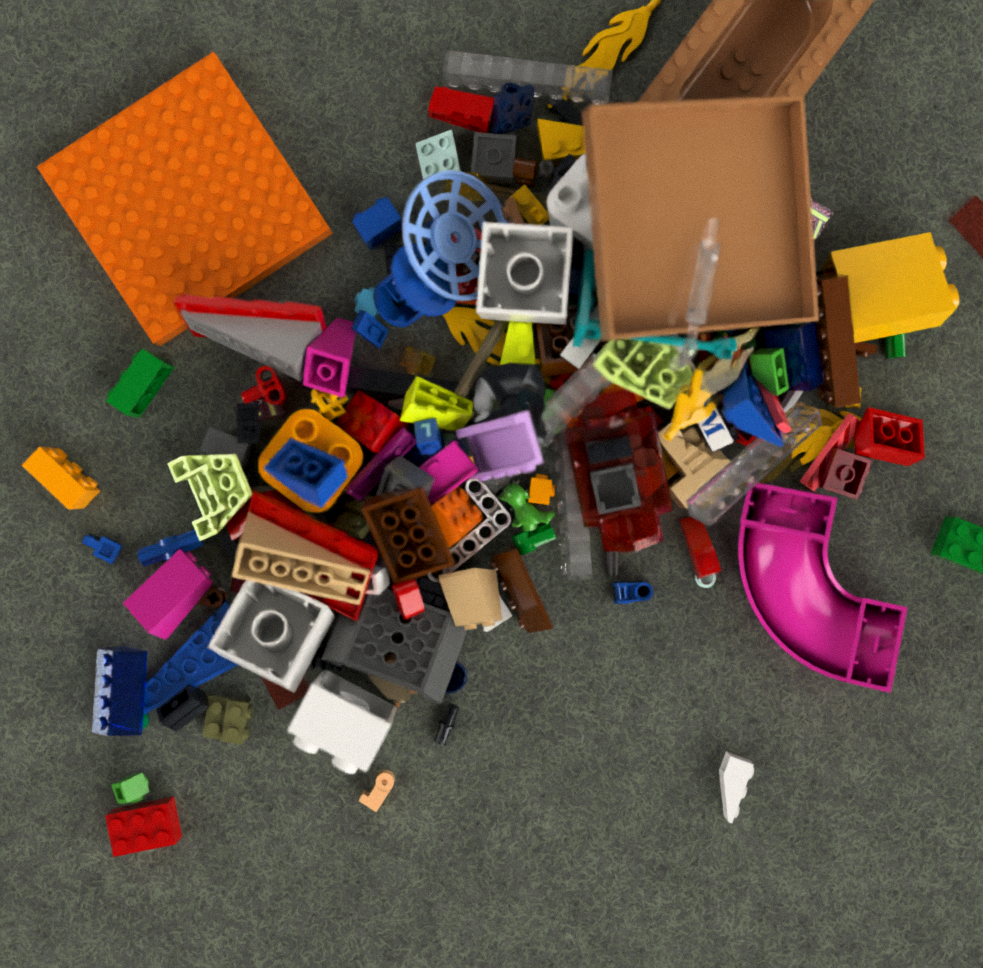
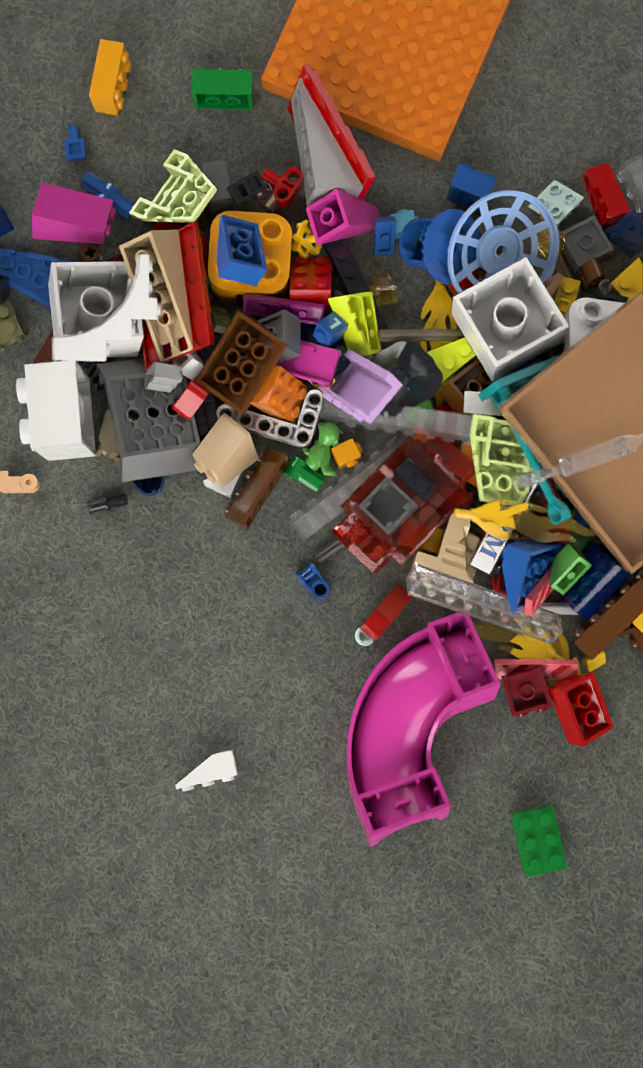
camera: 55 degrees right, 5 degrees down
(299, 597) = (119, 326): none -> white arch
(374, 611) = (163, 377): none -> light grey brick

